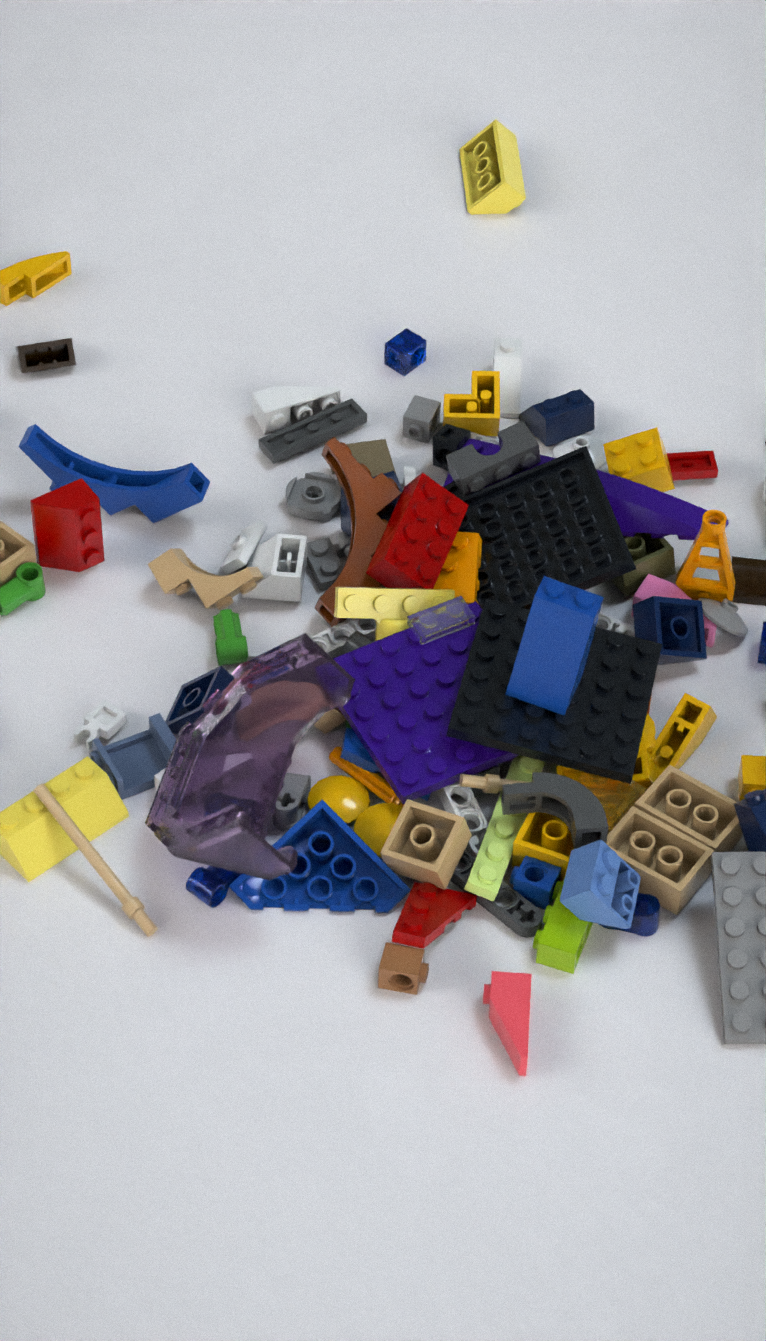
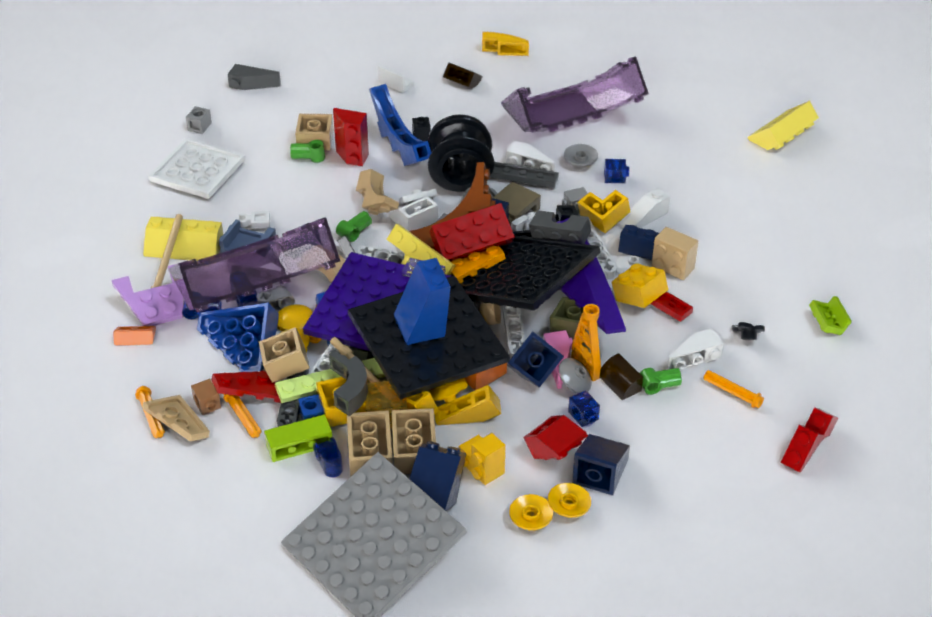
camera: 50 degrees right, 5 degrees down
(117, 454) = (421, 128): none -> black brick
(165, 917) = (154, 304): none -> lavender wing
(190, 978) = (134, 335): none -> orange slope
(235, 449) = (467, 143): none -> black wheel
(240, 293) = (578, 102): none -> clear purple windscreen
(341, 359) = (581, 155): none -> light grey dish
(366, 1041) = (144, 394): none -> light orange axle
(412, 1016) = (178, 416): none -> tan wing
(473, 952) = (243, 415): none -> light orange axle
(510, 1013) = (213, 452): coral slope -> none
(600, 886) = (318, 429): medium blue slope -> none
(620, 401) = (674, 253): none -> tan brick

